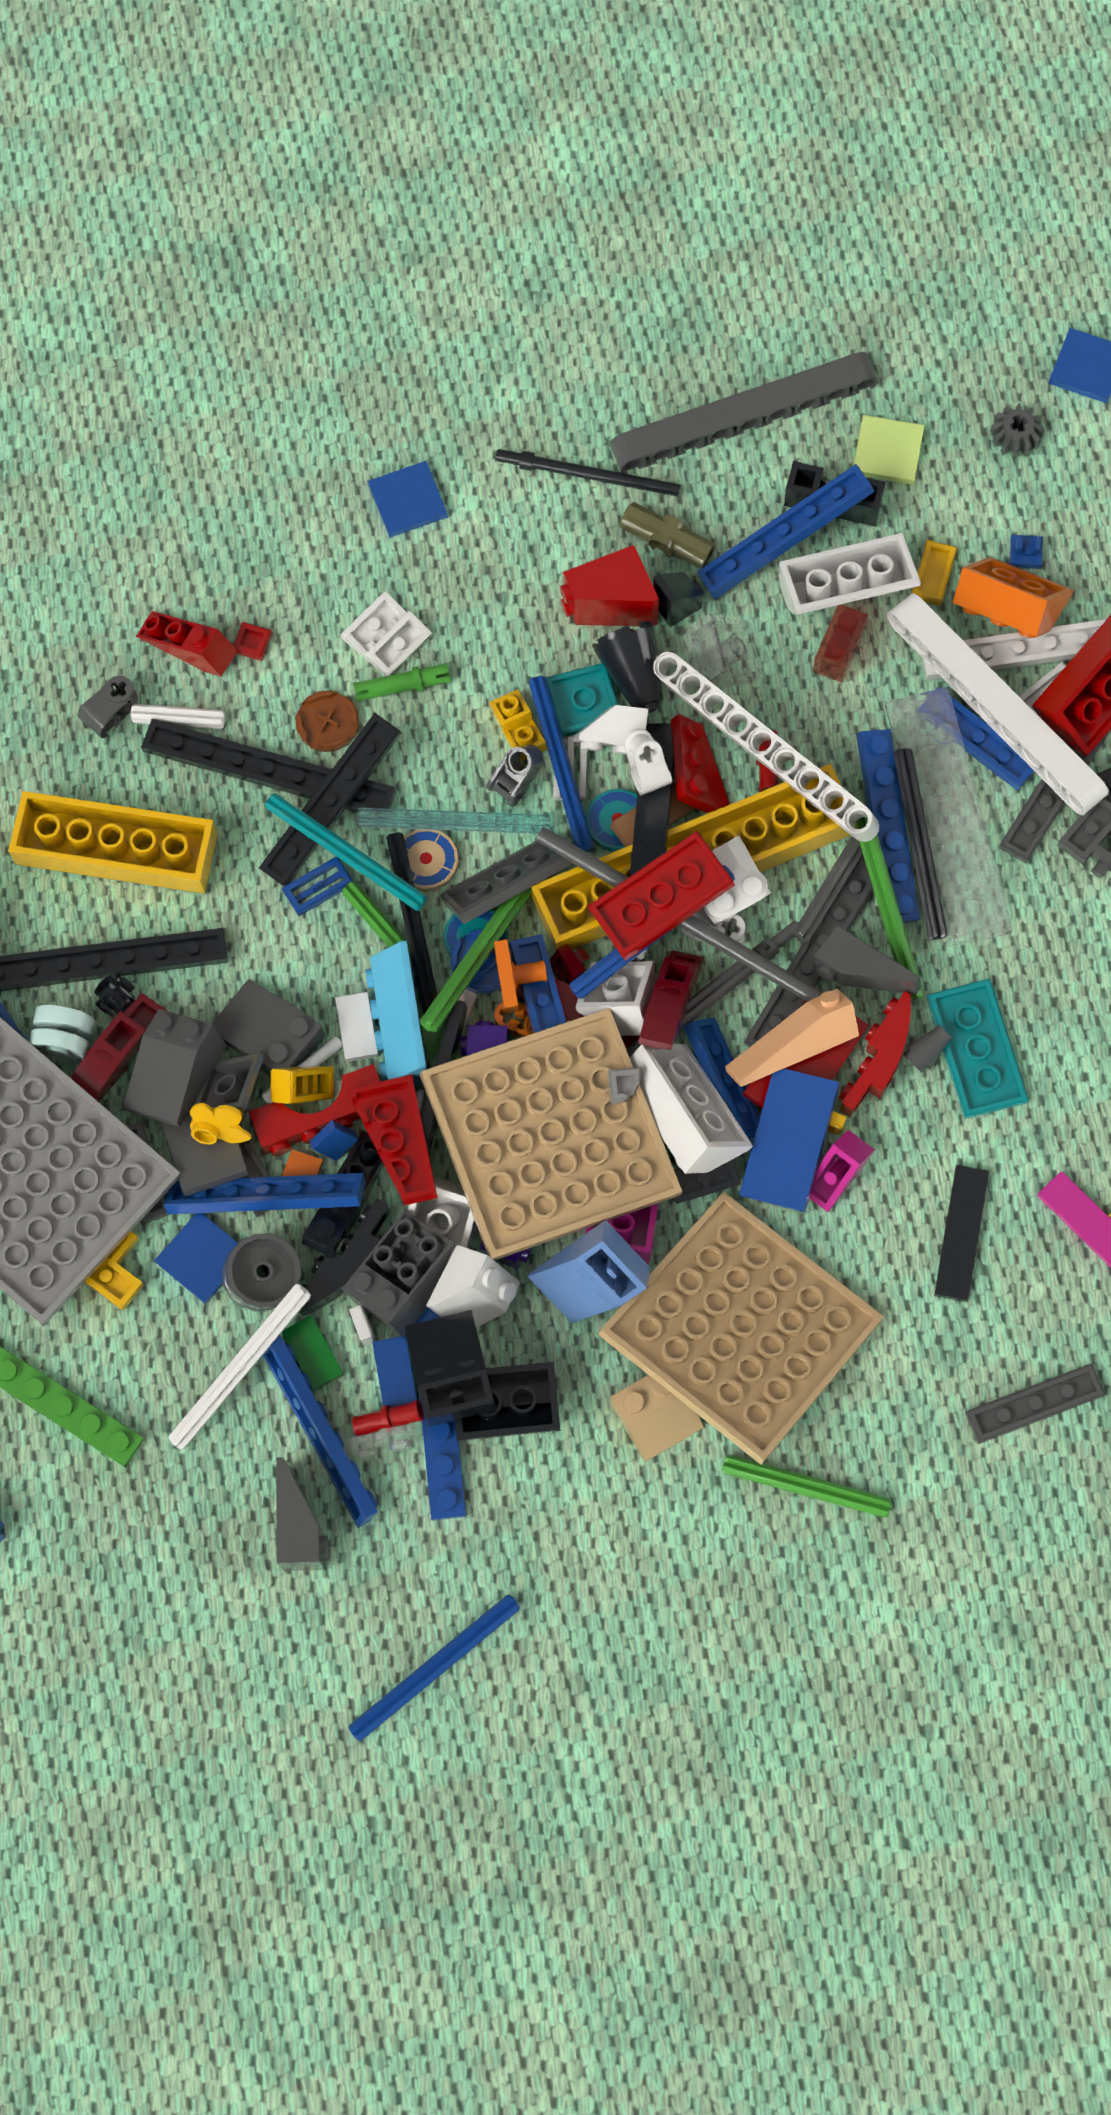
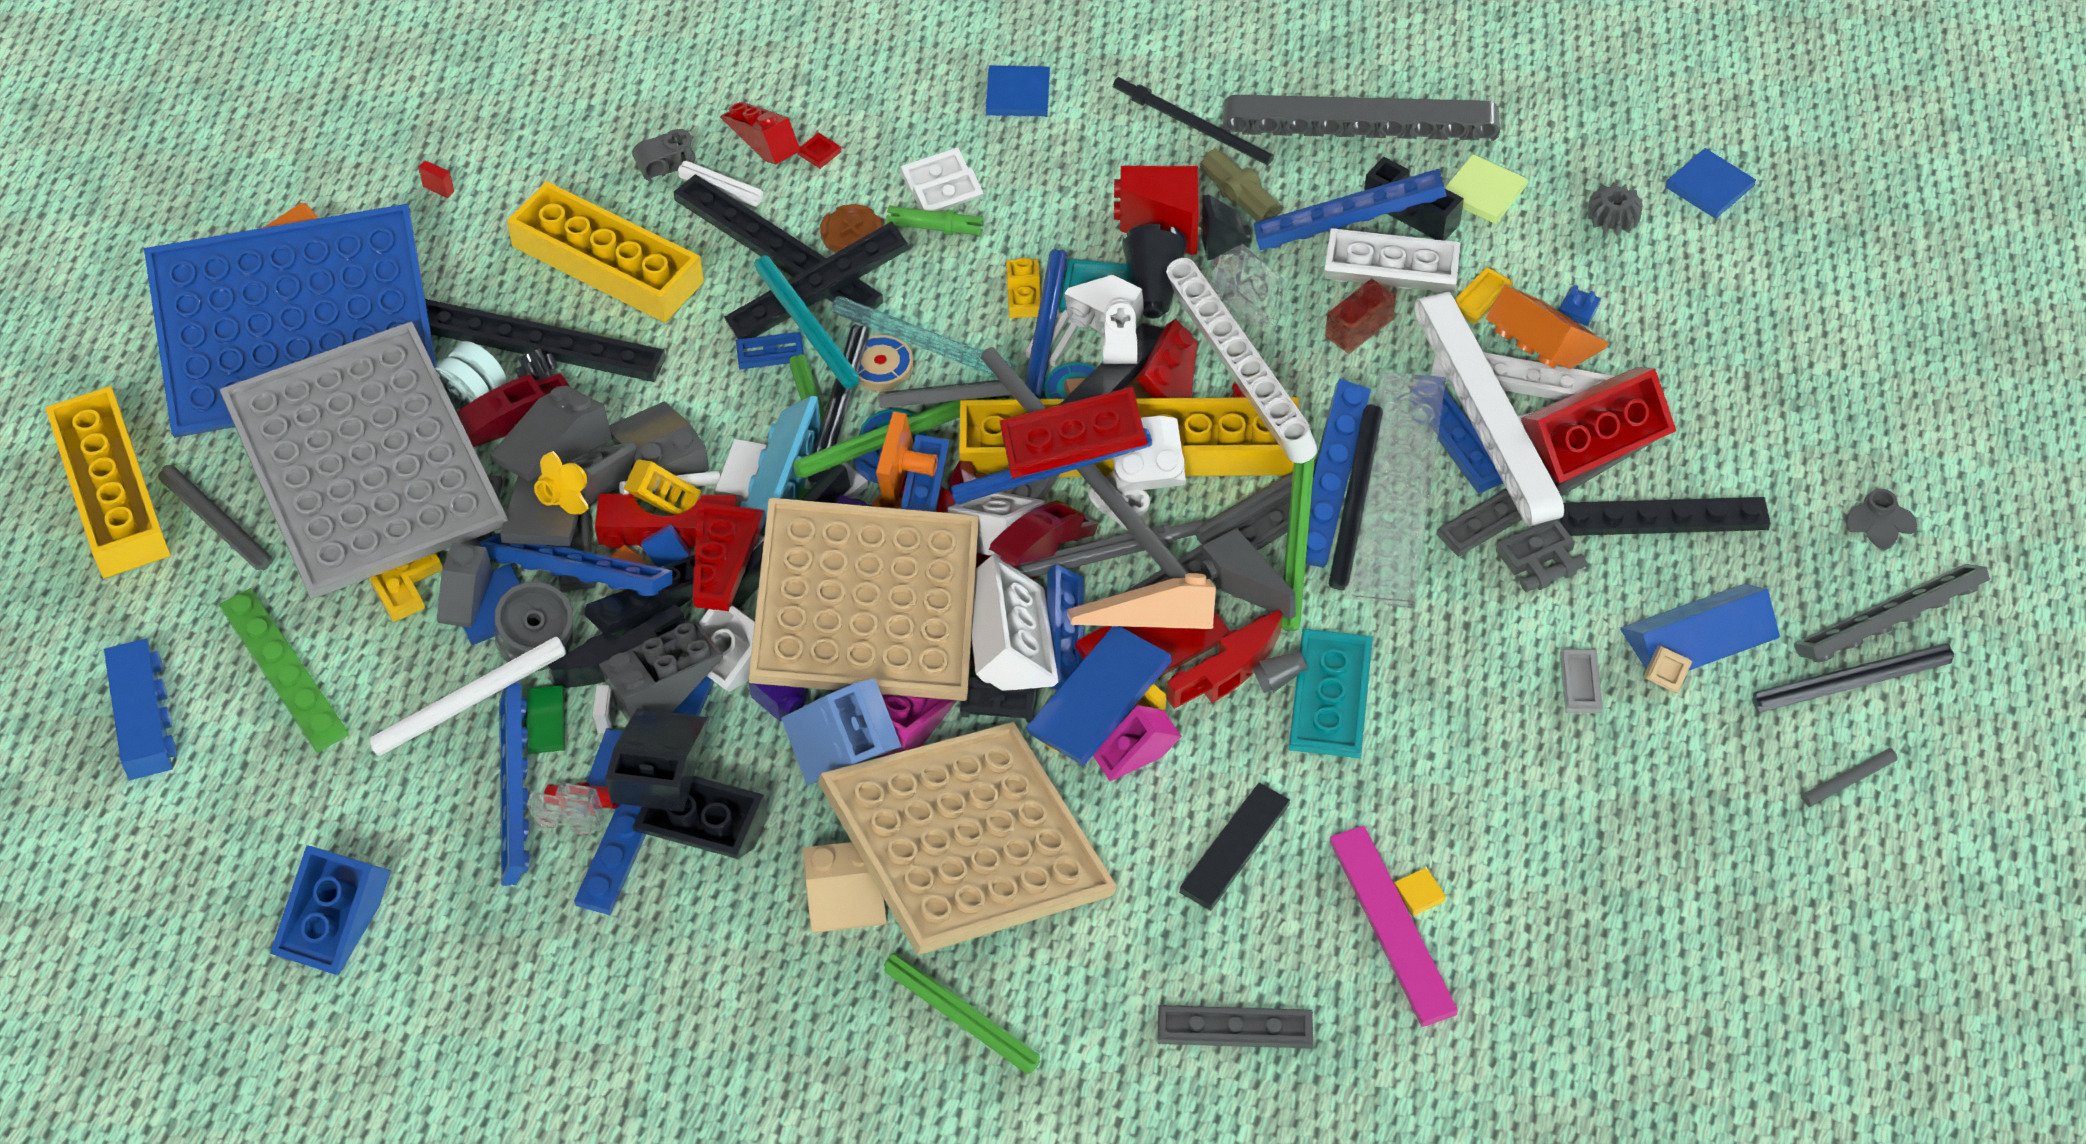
camera: 20 degrees right, 20 degrees down
(174, 1256) = (463, 584): none -> dark grey slope
(225, 1616) = (328, 909): none -> blue slope
(298, 1533) = (436, 852): dark grey slope -> none
(433, 1667) = (501, 1034): blue axle -> none
(473, 1284) = (729, 702): white slope -> none
(511, 777) = (999, 316): dark grey piece -> none
(623, 1084) = (957, 579): light grey tile -> none

